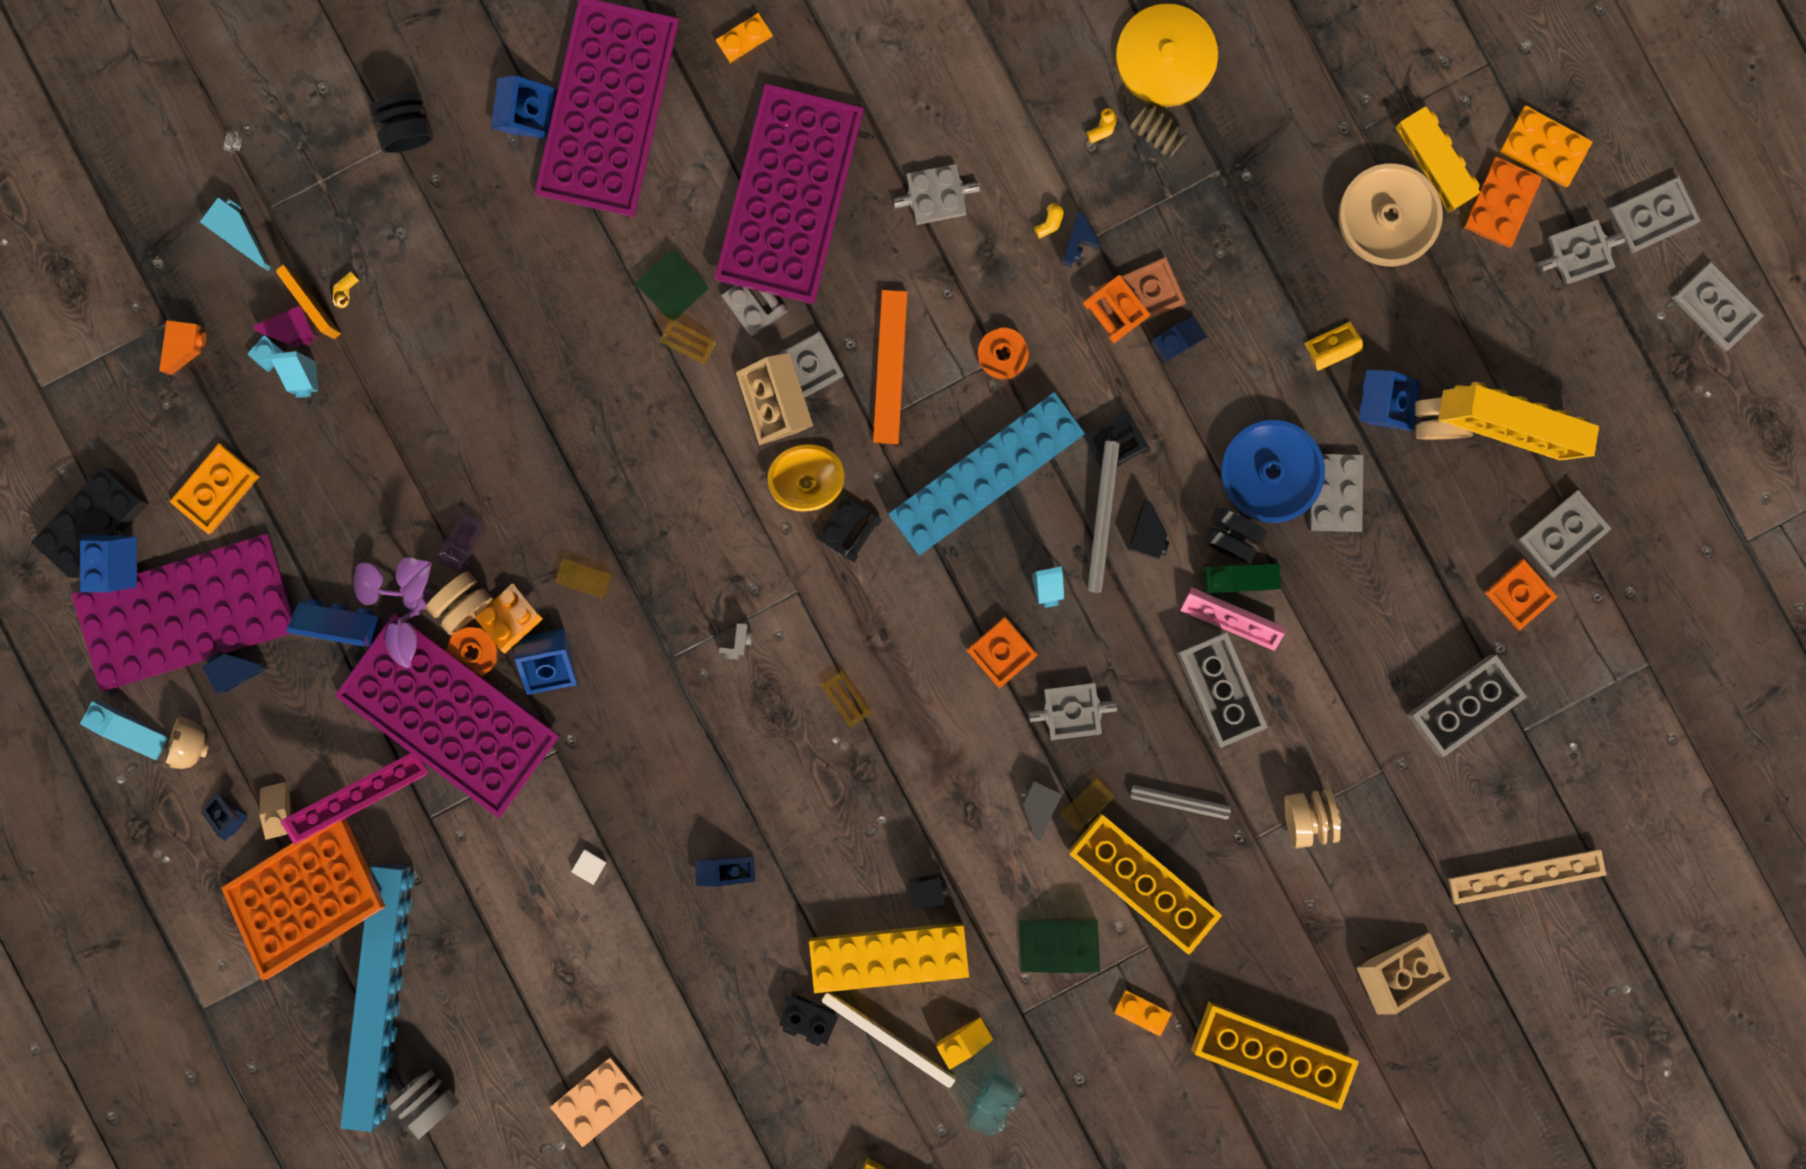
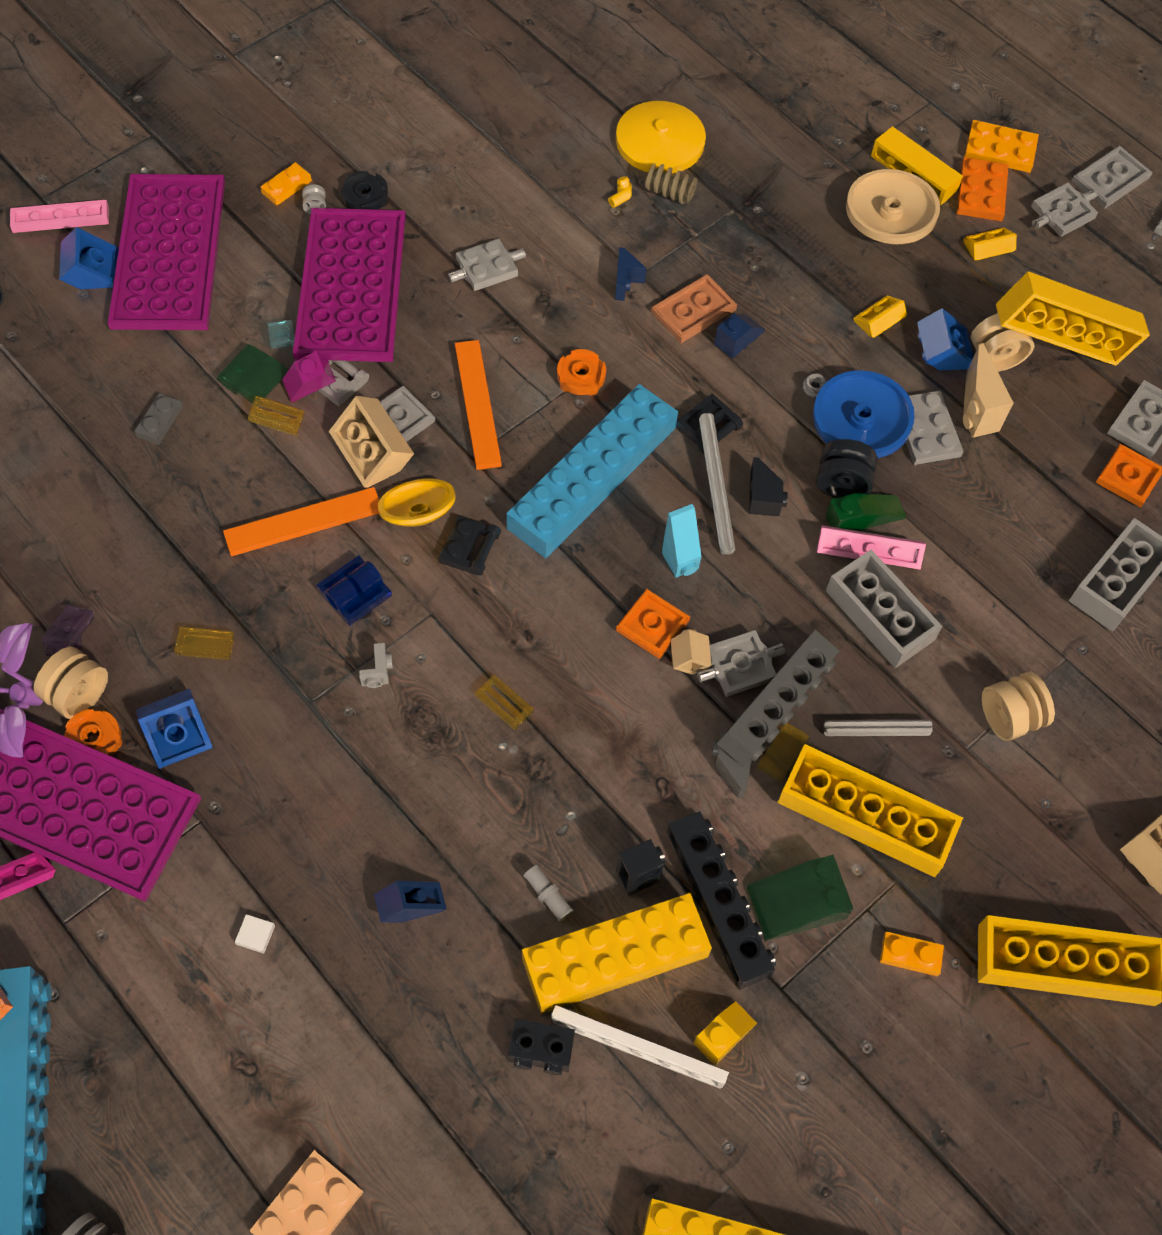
camera: 15 degrees left, 25 degrees down
(499, 37) = (59, 216): none -> bright pink plate
(508, 618) = (128, 691): light orange plate -> none
(572, 317) = (158, 419): none -> dark grey plate
(694, 467) = (302, 521): none -> orange tile
(707, 241) = (281, 334): none -> clear light blue plate
(726, 308) = (308, 376): none -> magenta slope
(729, 555) = (354, 590): none -> clear blue plate
(769, 71) = (313, 197): none -> light grey wheel
(833, 57) = (362, 181): none -> black plate
(844, 889) = (548, 893): none -> light grey pin
(992, 1106) = (779, 1095): clear light blue slope -> none
(995, 996) = (744, 969): none -> black brick
(1028, 692) = (690, 652): none -> tan brick
(1042, 796) = (778, 698): none -> dark grey brick
(1053, 221) = (598, 267): yellow arm -> none
(1124, 305) = (680, 309): orange plate -> none
(1245, 420) = (813, 380): none -> light grey plate
(1400, 482) = (985, 396): none -> tan slope
(1485, 277) = (990, 243): none -> yellow slope

